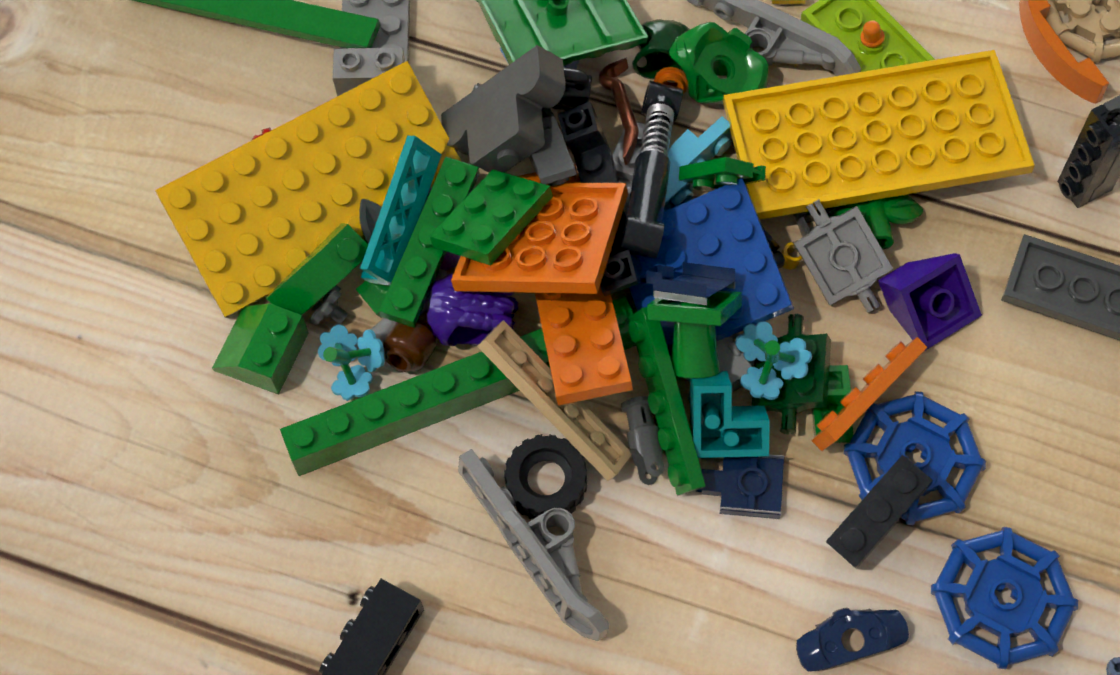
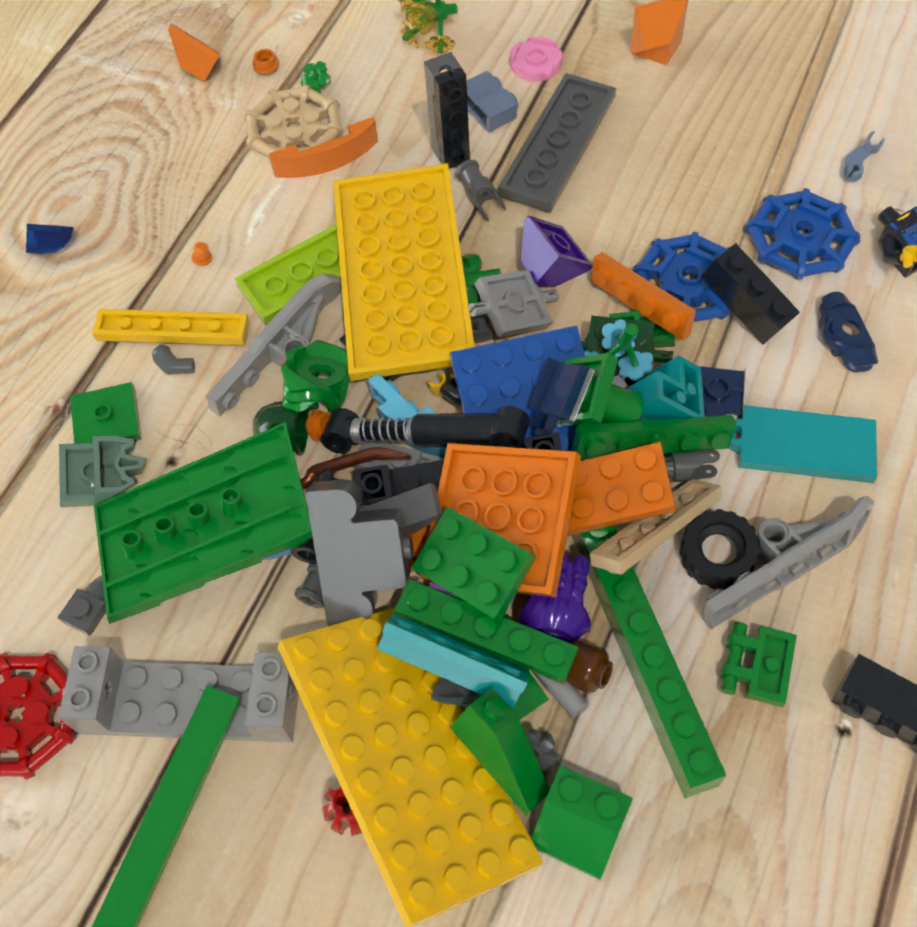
camera: 85 degrees left, 5 degrees down
(340, 349) = (619, 723): medium azure plant -> none
(414, 522) = (770, 664): none -> green plate
(689, 579) = (806, 444): none -> teal piece
(720, 172) = (442, 363): green plate -> none
(872, 34) = (299, 266): orange piece -> none
(1024, 215) = (478, 186): none -> dark grey piece

